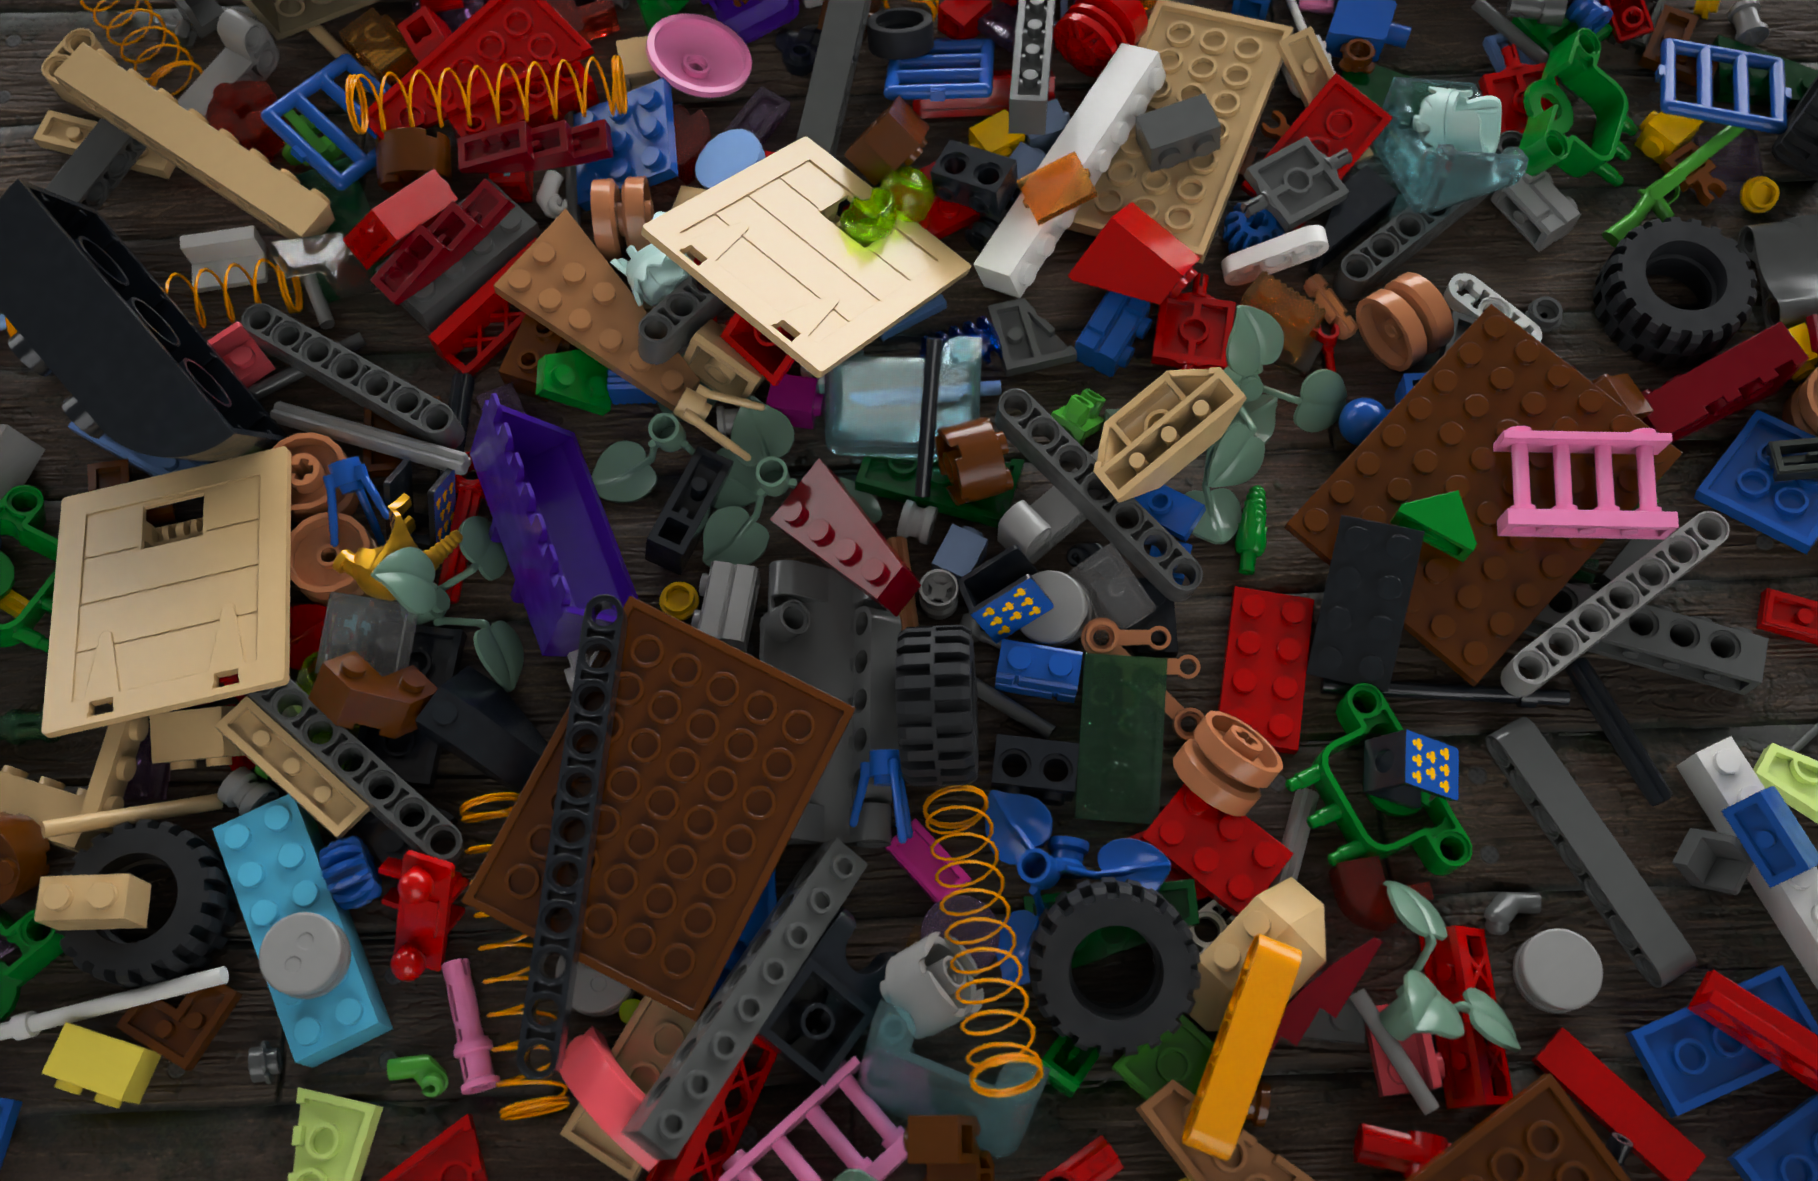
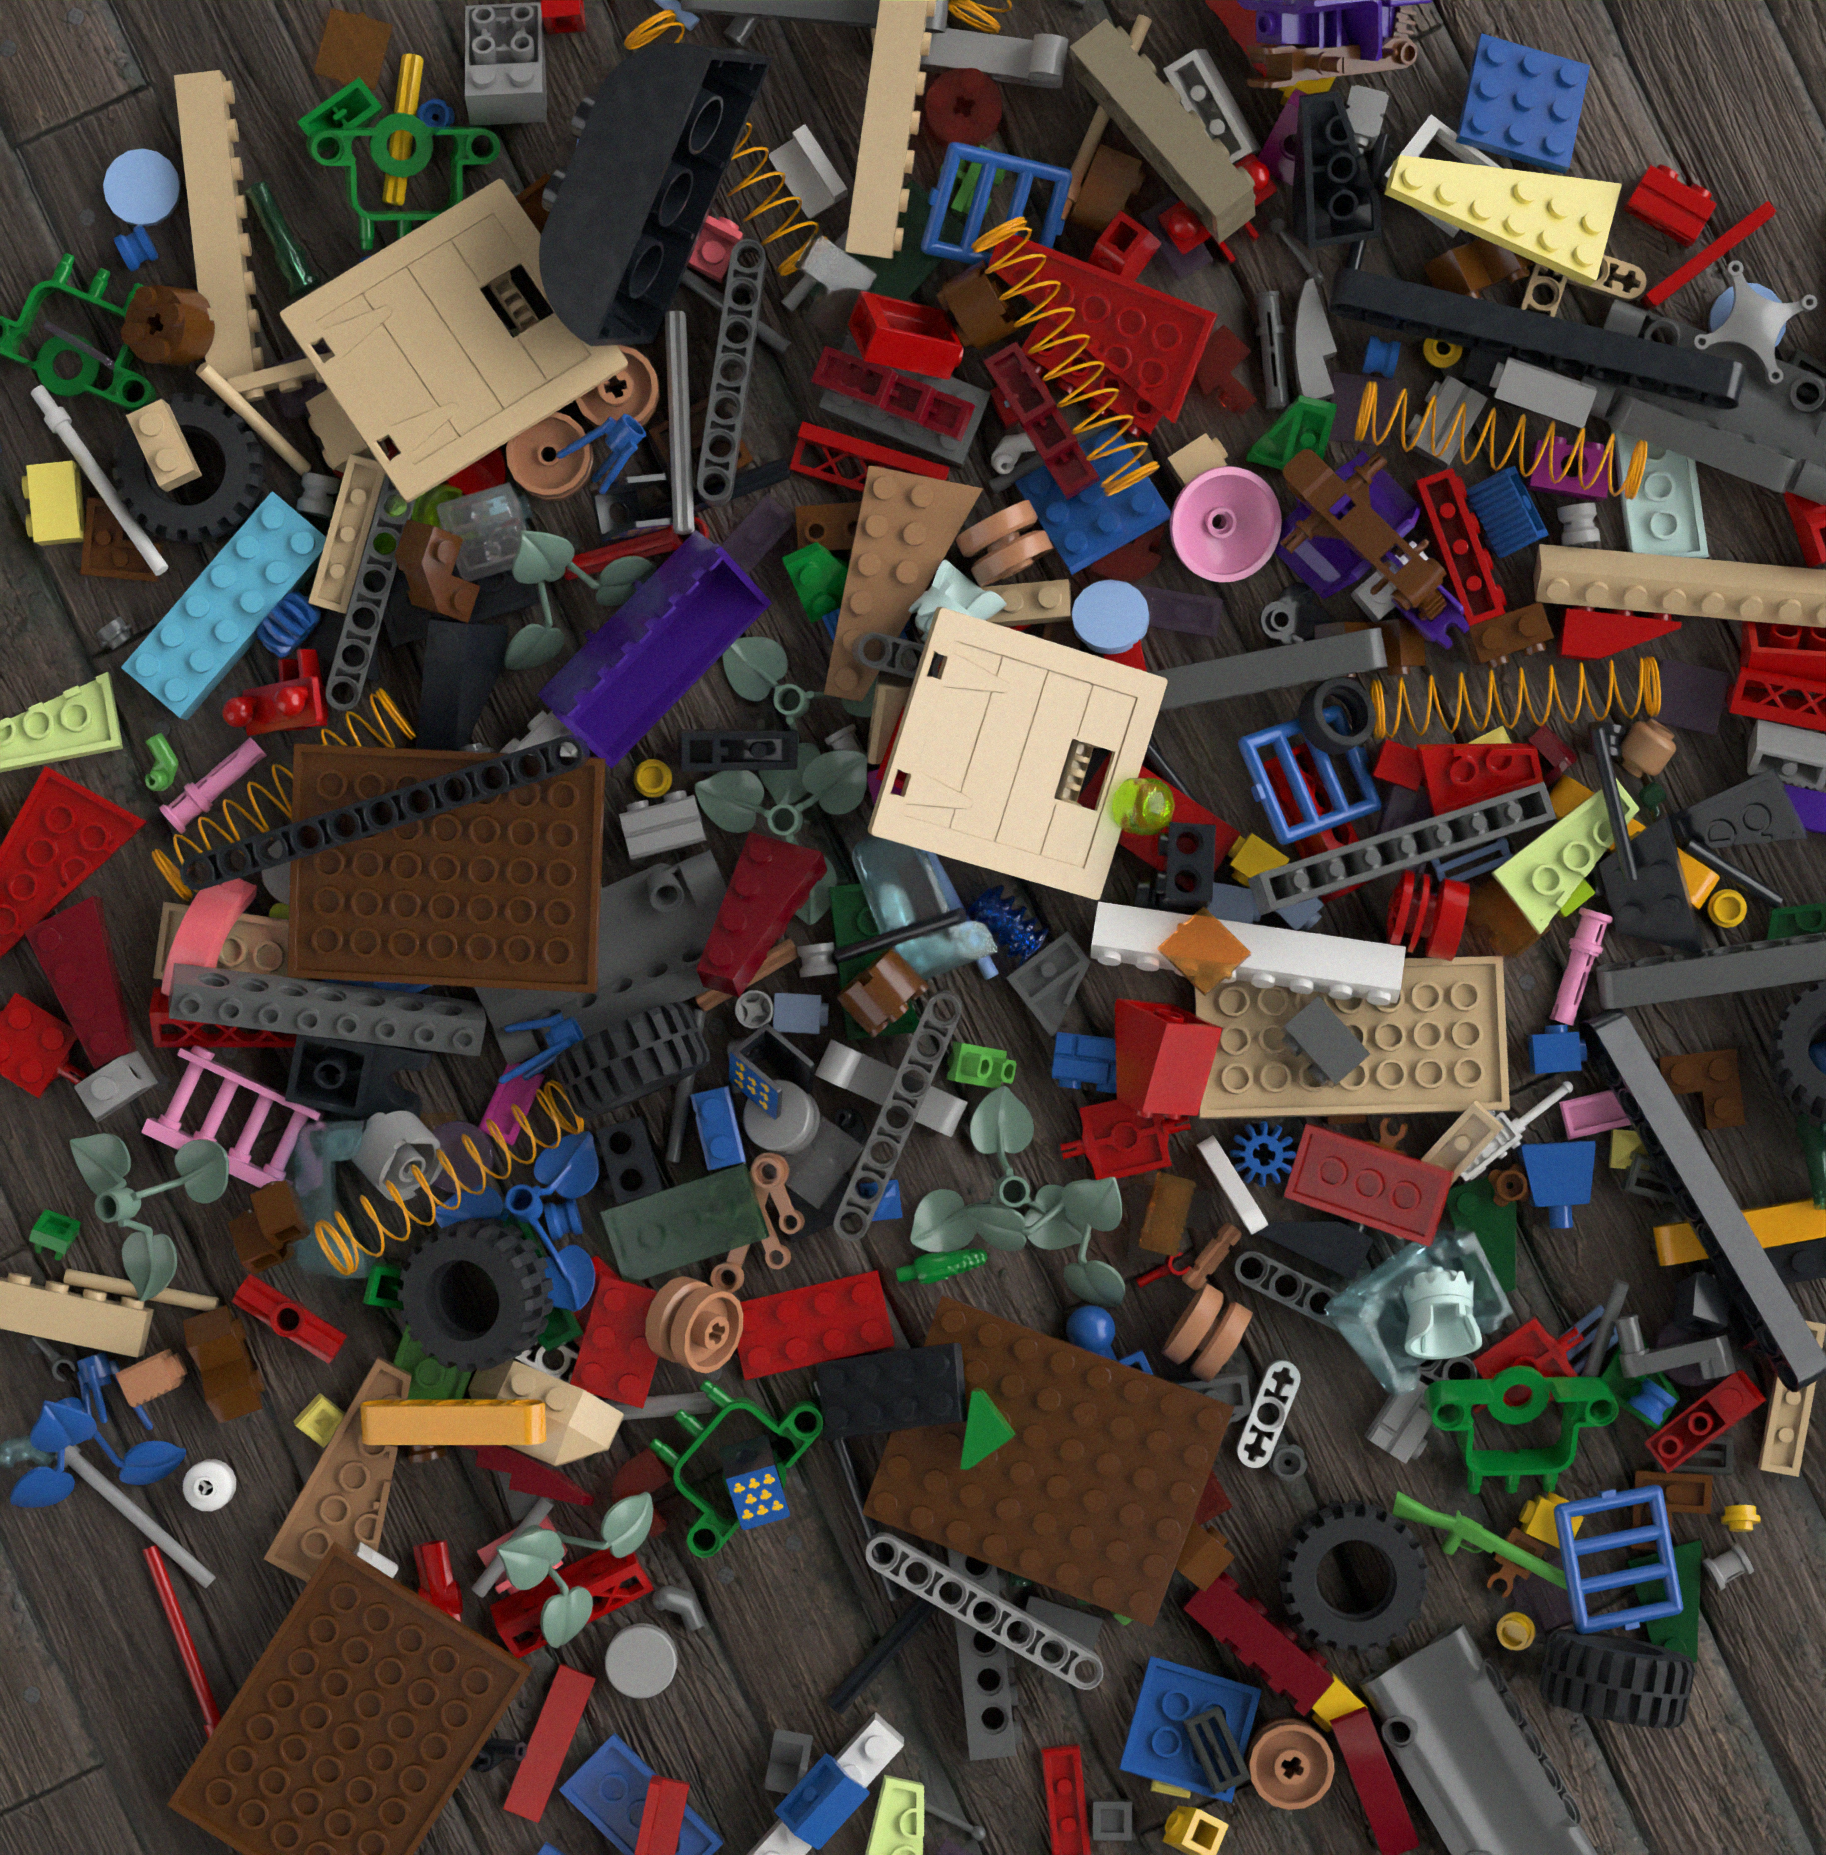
camera: 65 degrees right, 20 degrees up
(304, 955) = (200, 635): light grey head -> none
(366, 560) = (541, 515): pearl gold piece -> none
(694, 410) = (823, 716): tan plant -> none
(871, 218) = (1089, 788): clear neon green hair -> none
(889, 141) = (1194, 765): reddish brown brick -> none
(1165, 429) = (968, 1151): tan wedge -> none
(1173, 510) = (928, 1175): blue plate -> none
(1296, 183) = (1312, 1178): dark grey plate -> none
(1565, 518) = (1048, 1576): bright pink fence -> none
(1591, 852) = (759, 1655): dark grey beam -> none

